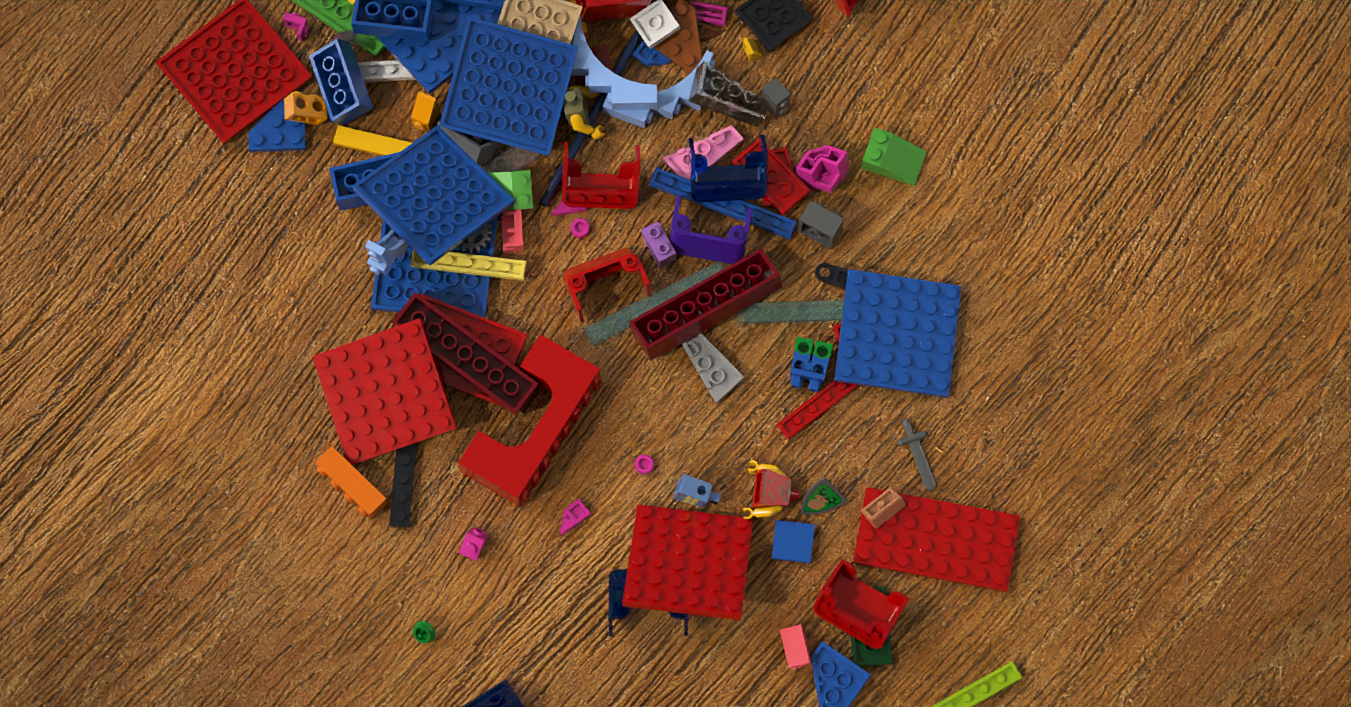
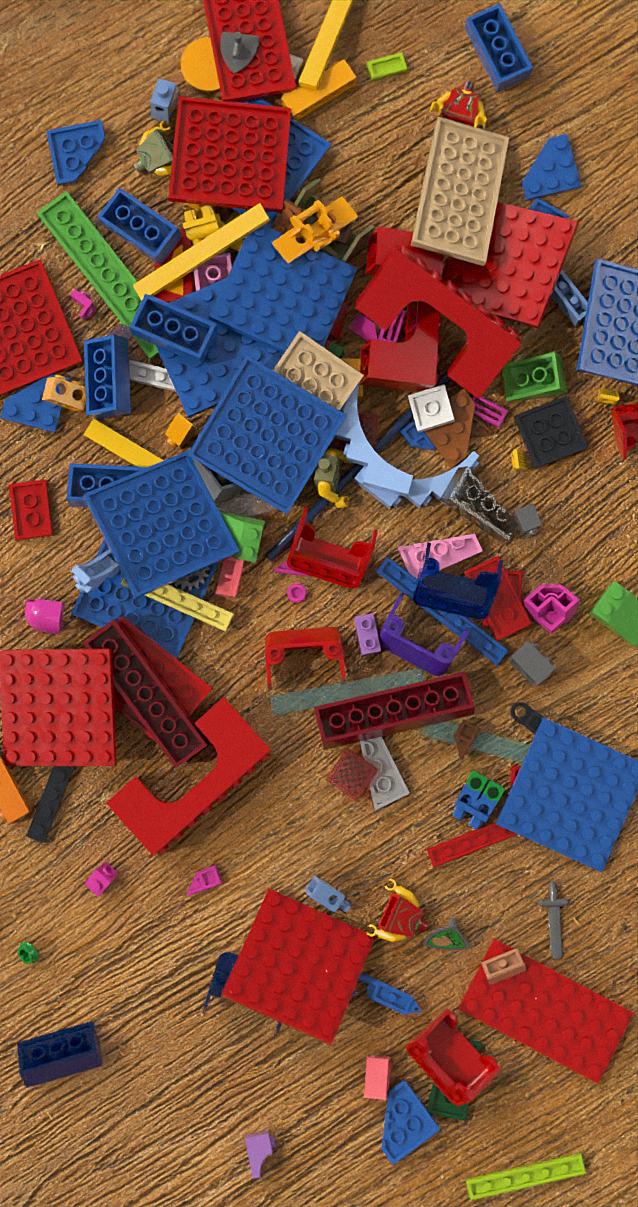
camera: 15 degrees right, 10 degrees up
(303, 226) = (31, 510): none -> red tile
(346, 313) = (45, 615): none -> dark pink brick
(644, 464) = (287, 849): dark pink tile -> none
(684, 376) = (352, 774): none -> clear red tile
(780, 310) = (465, 736): none -> reddish brown tile
(783, 569) = (389, 995): none -> blue plate
(793, 541) = (406, 970): blue tile -> none

